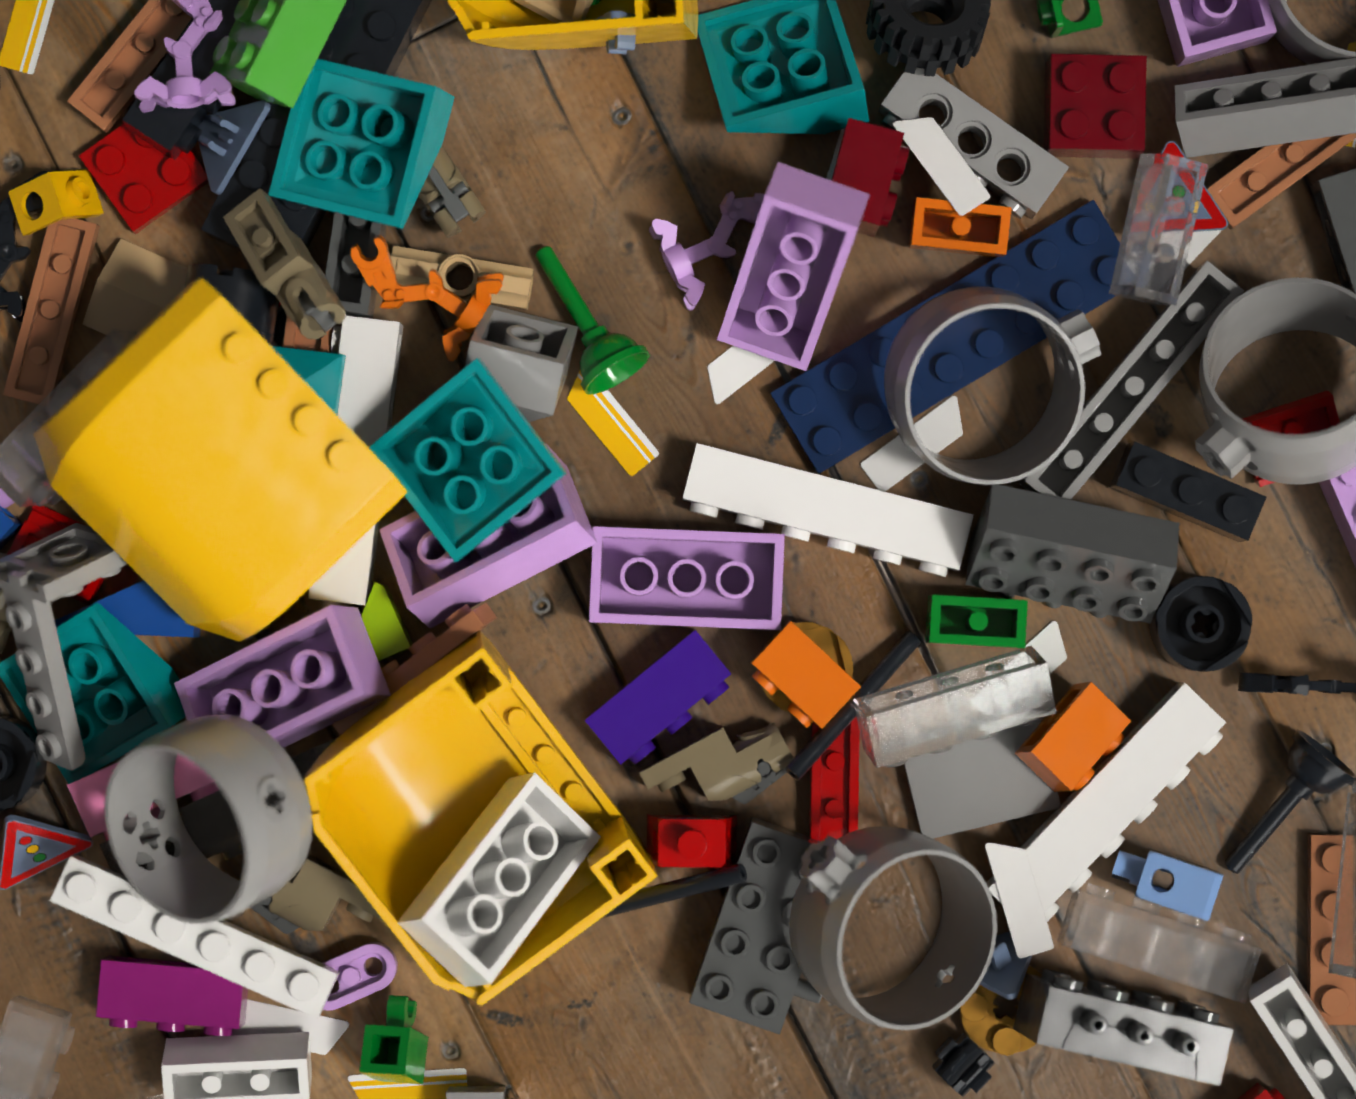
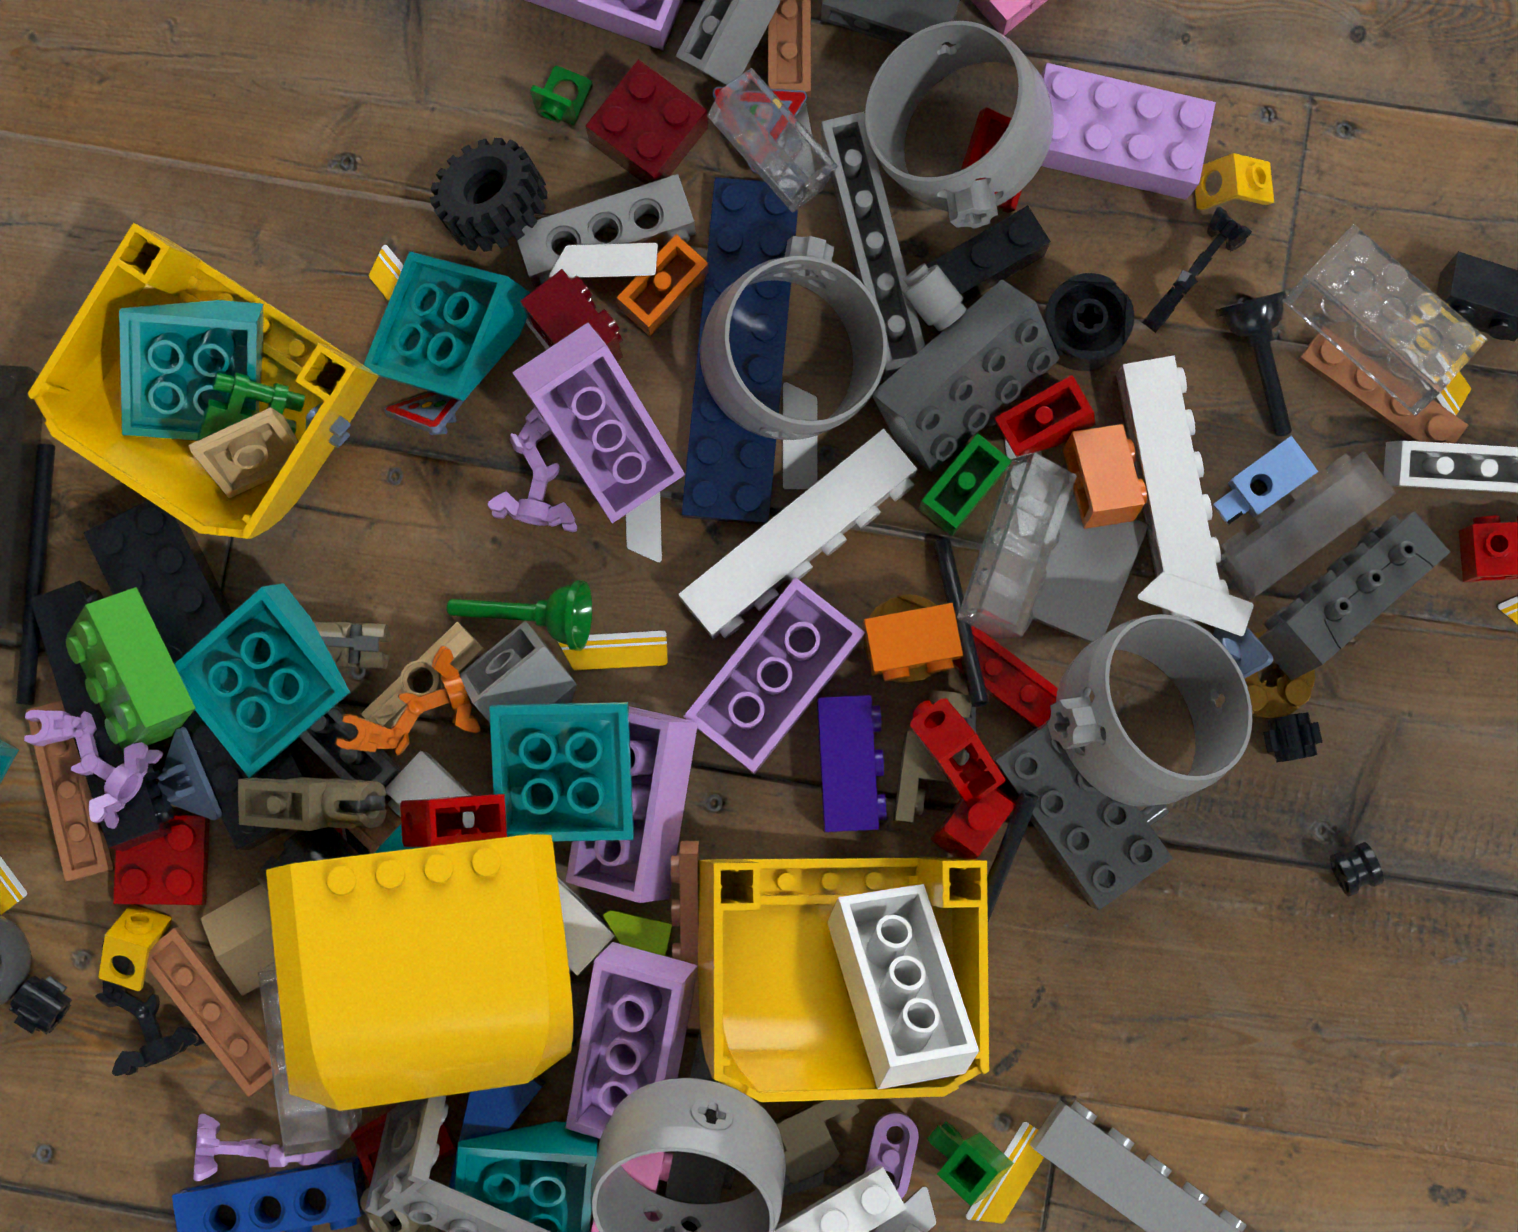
camera: 50 degrees left, 5 degrees down
(347, 387) = (441, 820): none -> red torso
(694, 102) = (426, 412): none -> piece
(738, 764) = (945, 734): none -> red torso
(1086, 650) = (1046, 418): none -> red slope
(1119, 475) = (933, 296): none -> light grey brick

